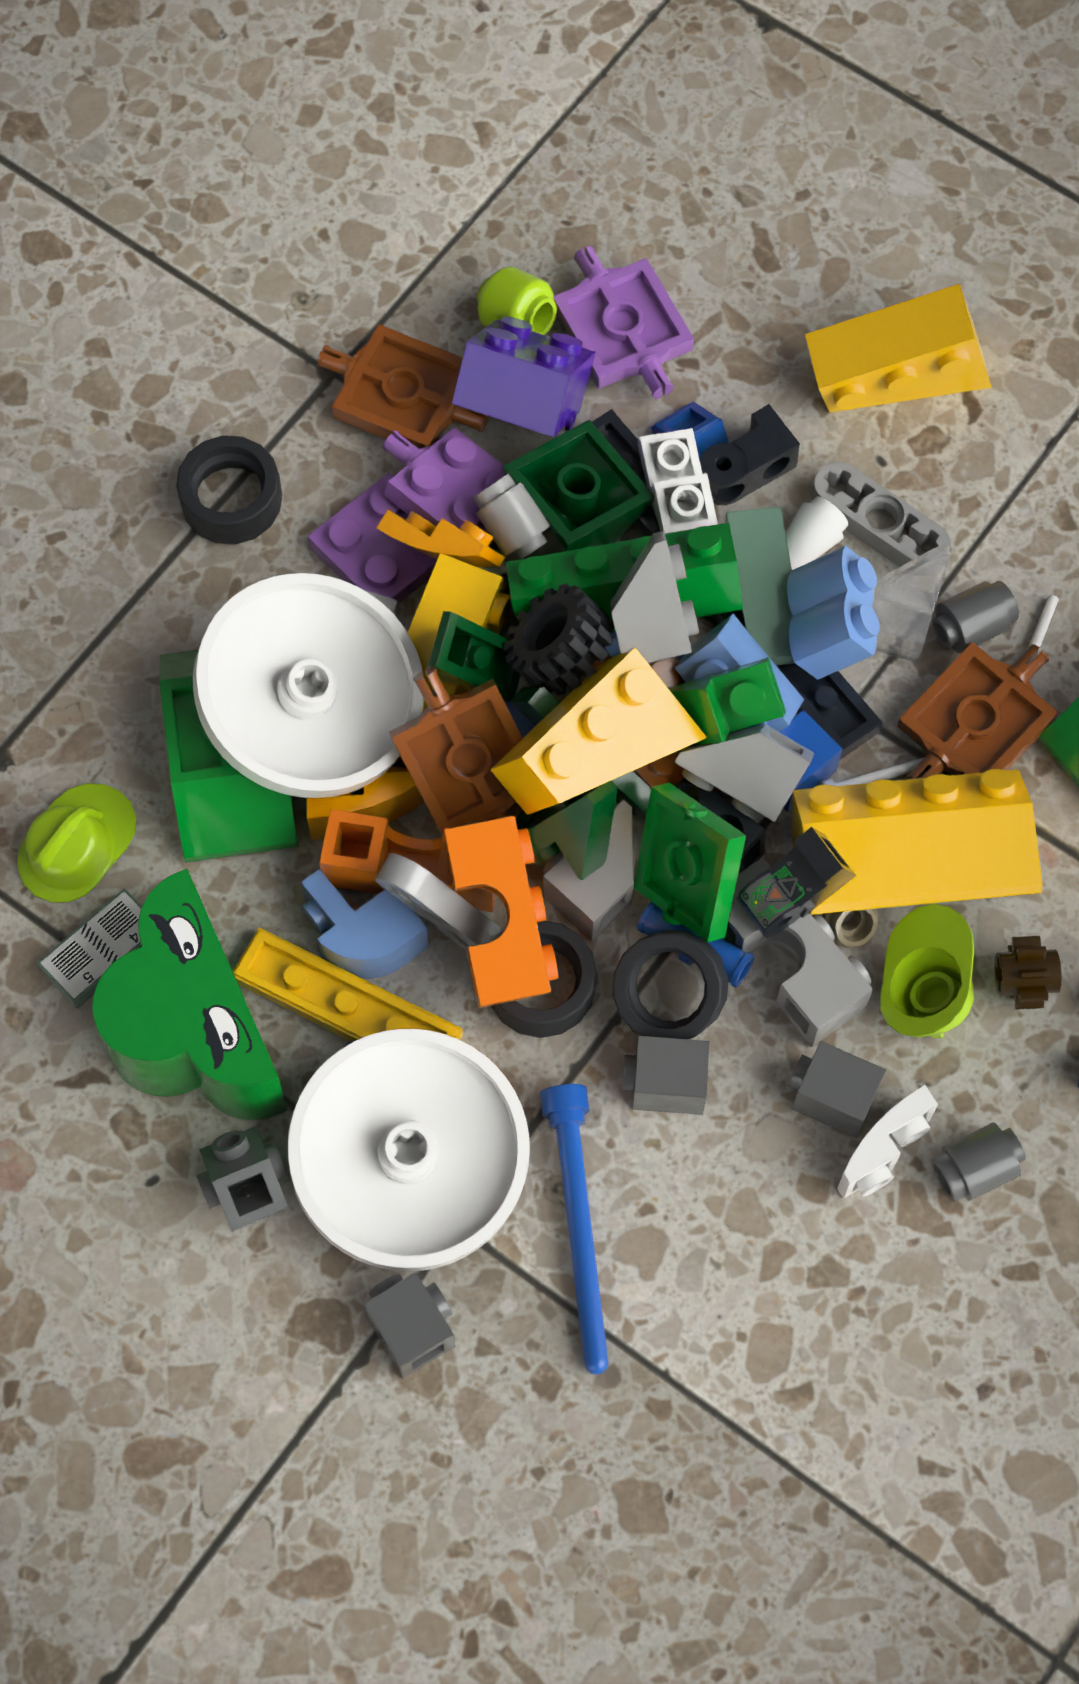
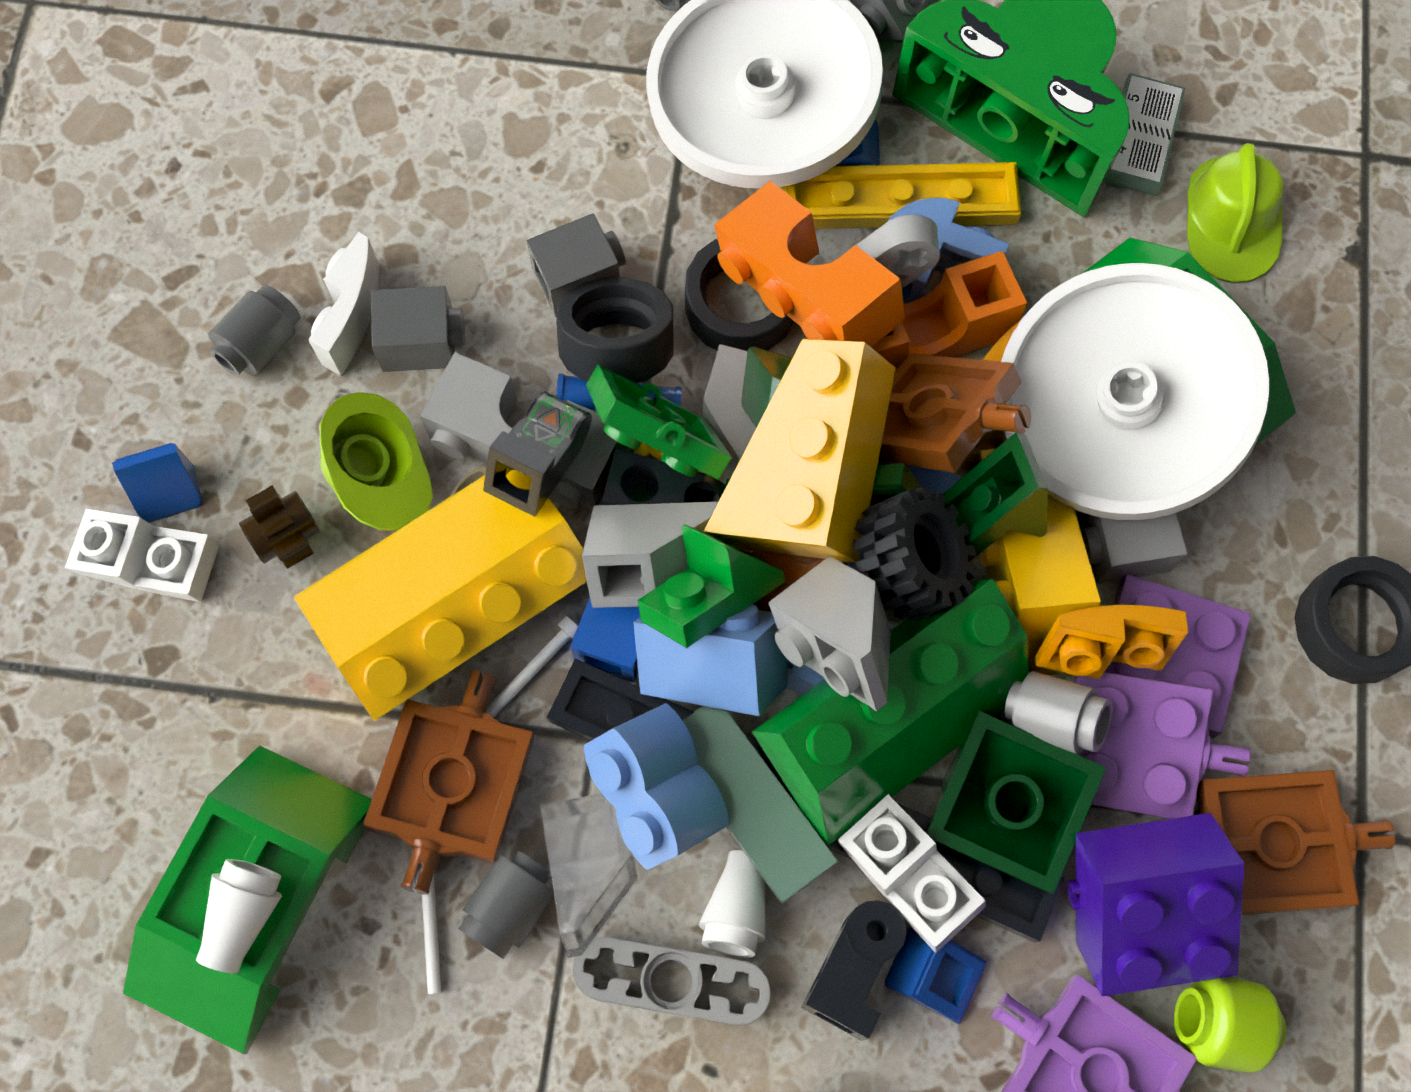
camera: 150 degrees right, 5 degrees up
(566, 1109) = (653, 197): blue piece -> none

